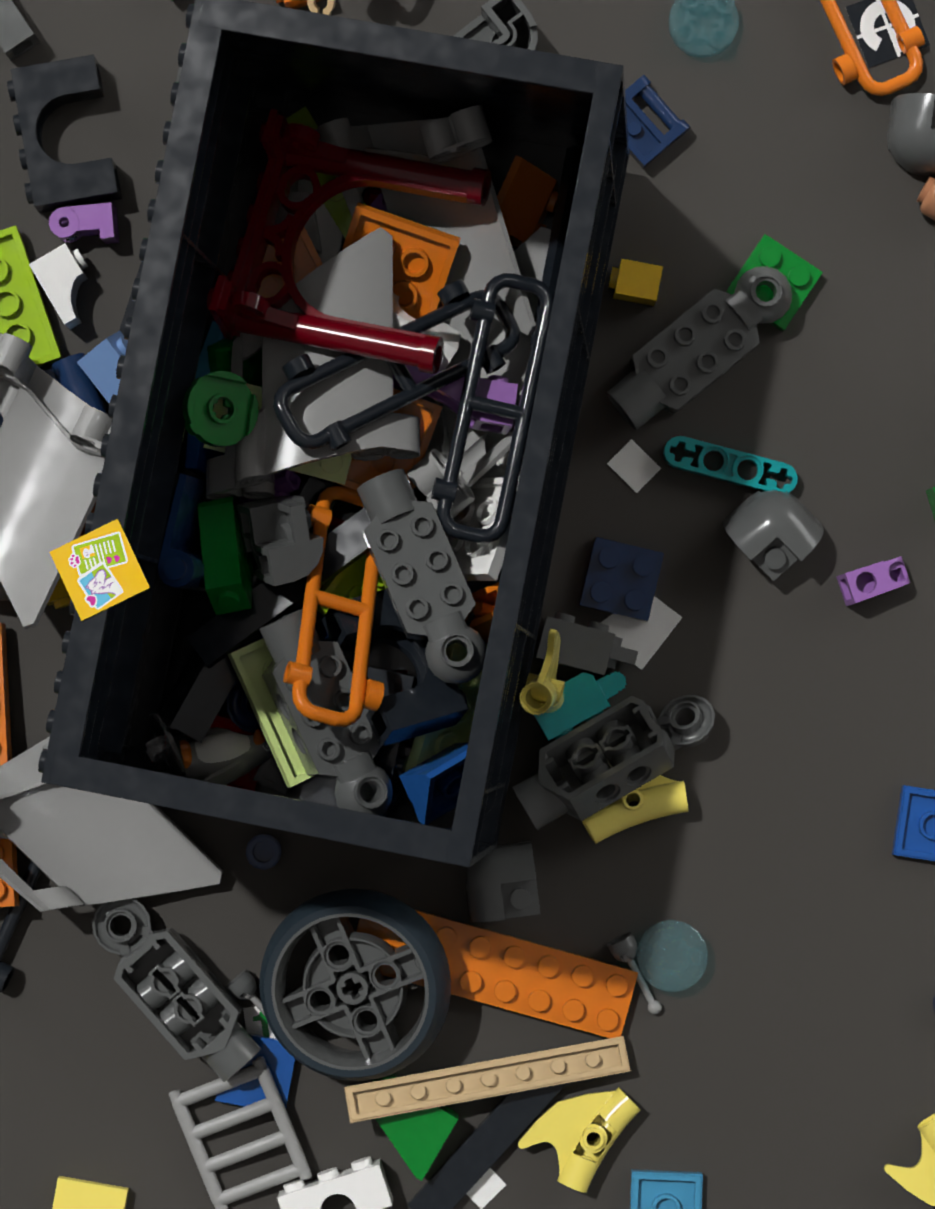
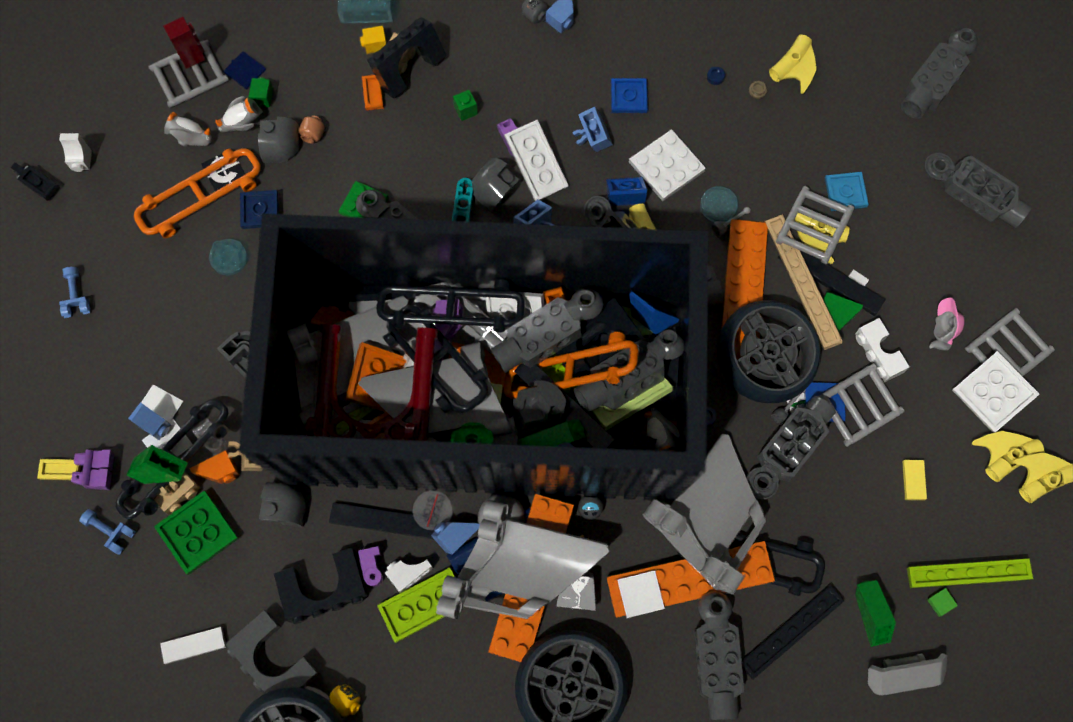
camera: 100 degrees left, 15 degrees down
(99, 569) = (579, 456): sticker -> none
(553, 1150) = (798, 208): none -> light grey bar
(680, 595) = (536, 213): none -> medium blue brick
(728, 783) = (626, 191): none -> blue slope
(771, 872) = (667, 165): none -> white plate
(789, 86) = (254, 204): none -> dark blue plate
(810, 619) = (536, 160): none -> white tile
(858, 742) = (593, 130): none -> medium blue brick
(906, 1081) = (757, 89): none -> dark tan plate

